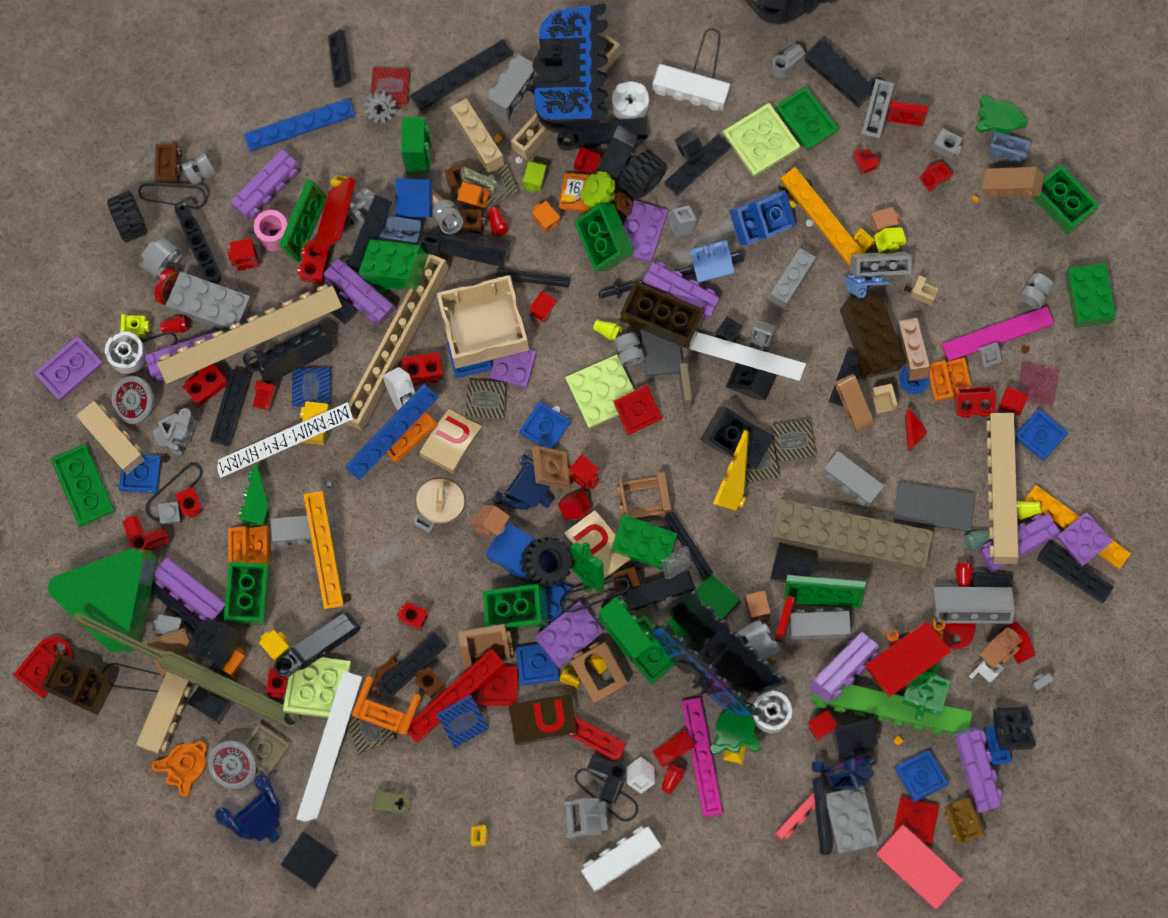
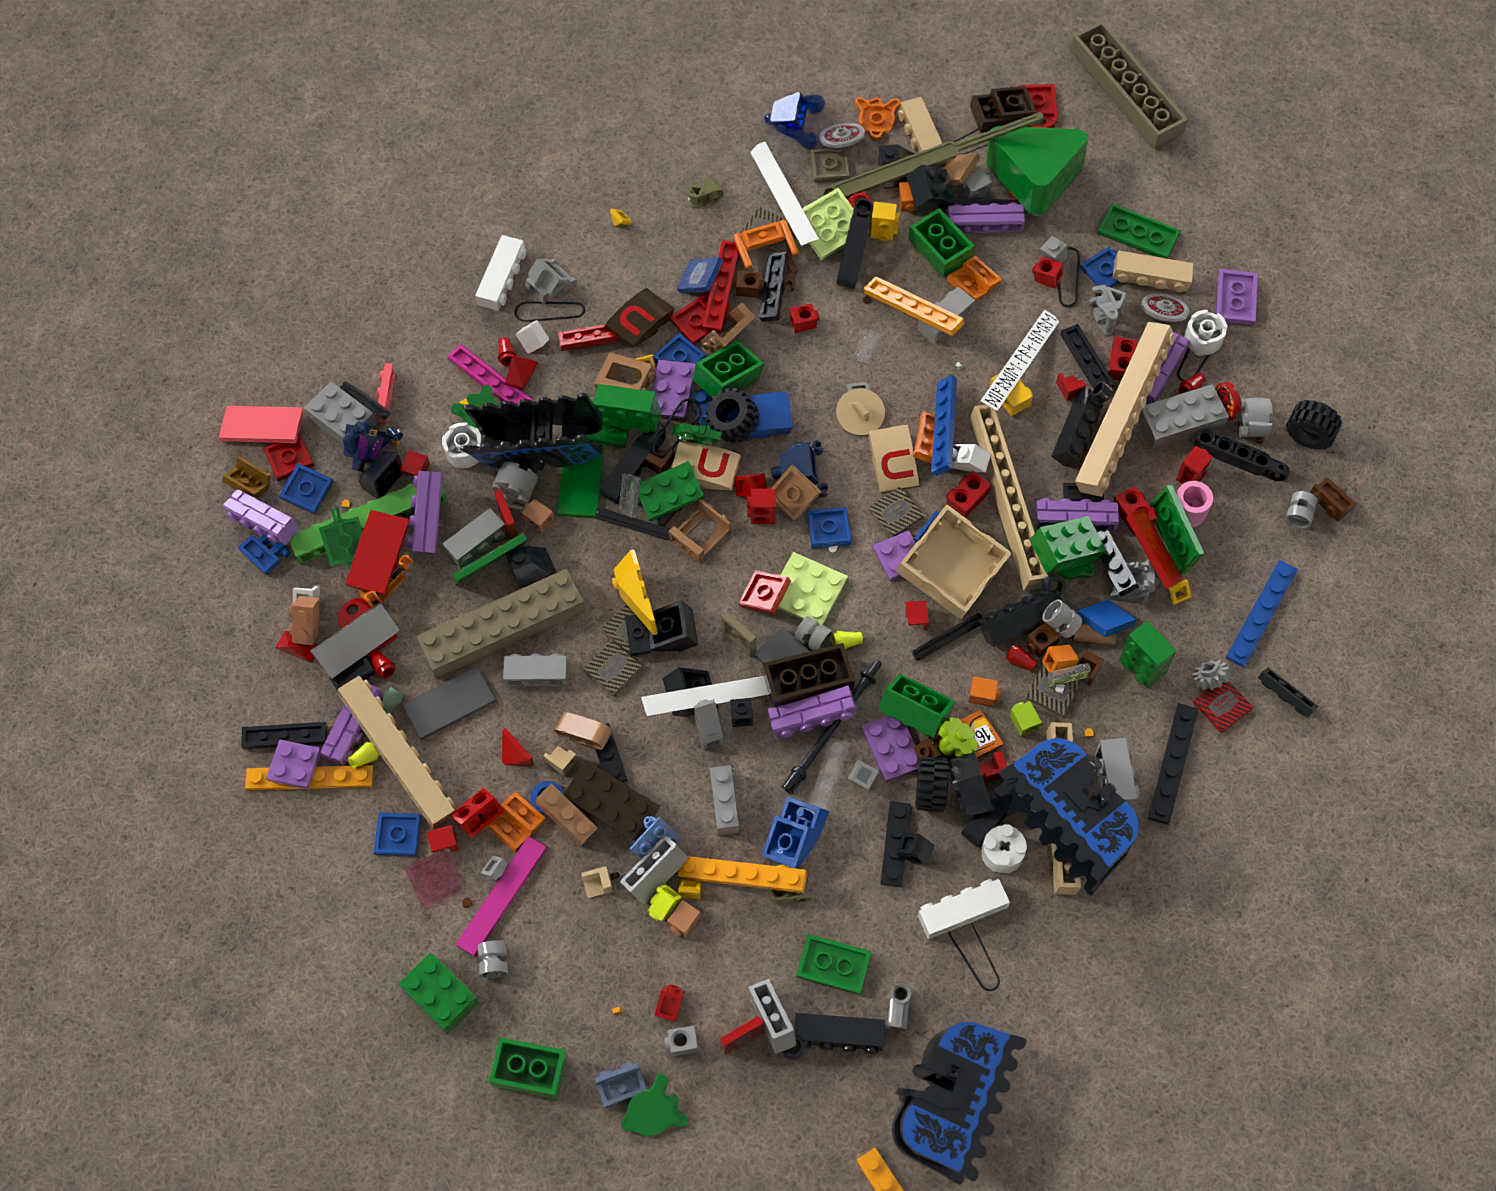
camera: 140 degrees right, 10 degrees down
(136, 534) = (1063, 225): red piece -> none
(140, 330) = (1221, 360): neon yellow brick -> none
(172, 185) = (1302, 486): black piece -> none
(256, 505) = (996, 307): green slope -> none
(265, 185) = (1237, 540): medium lavender brick -> none
(309, 860) = (730, 119): black slope -> none
(311, 386) = (1041, 420): tile -> none
(400, 230) = (1089, 585): sand blue bracket -> none
(477, 136) = (1106, 712): tan brick -> none
(489, 521) = (805, 417): nougat brick -> none
(613, 785) = (561, 321): black piece -> none
(712, 261) = (806, 757): medium blue hinge -> none
(761, 140) = (858, 910): yellowish green plate -> none
(865, 161) = (747, 965): red panel -> none
(1013, 182) = (588, 1041): medium nougat brick -> none
(1013, 728) = (252, 572): black slope -> none
(1041, 681) = (253, 625): light grey plate -> none

